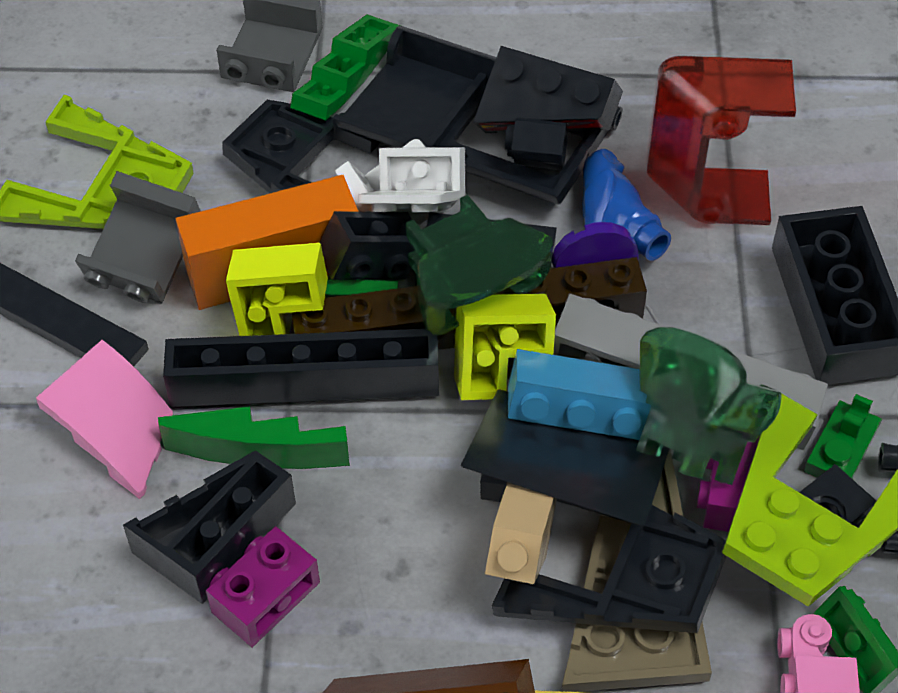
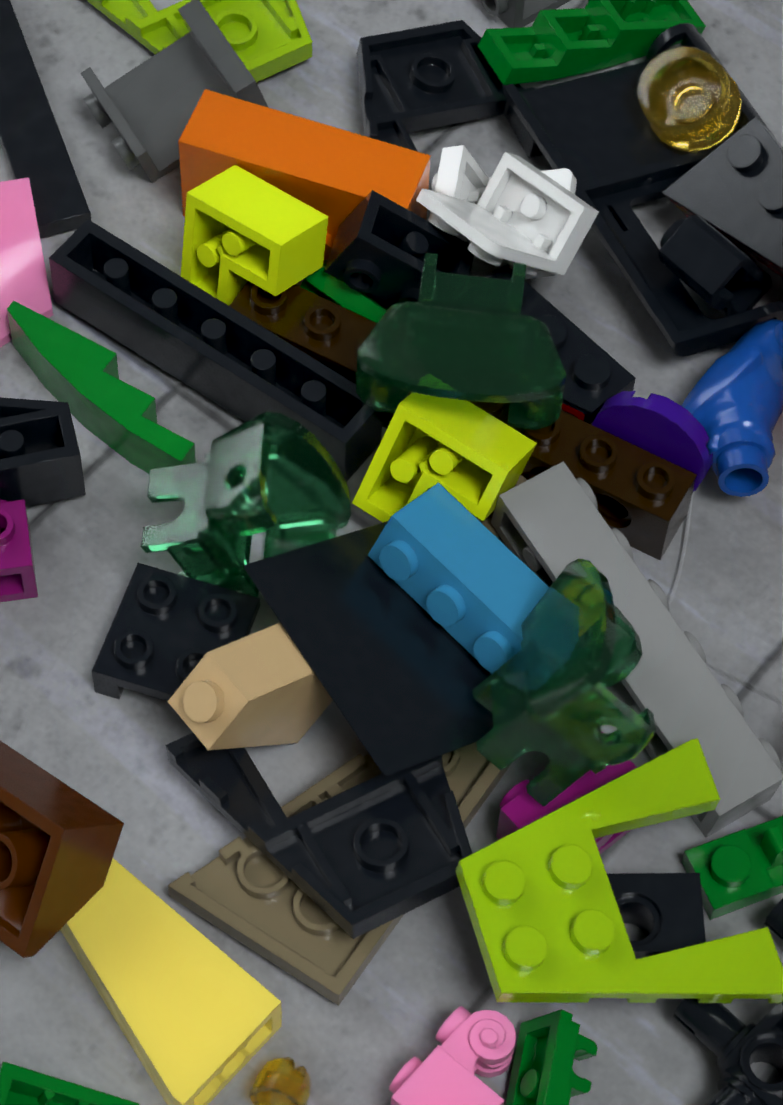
camera: 35 degrees right, 5 degrees up
(415, 423) = (252, 481): none -> clear green piece
(431, 546) = (166, 630): none -> black piece
(439, 64) = (689, 99): none -> clear yellow piece

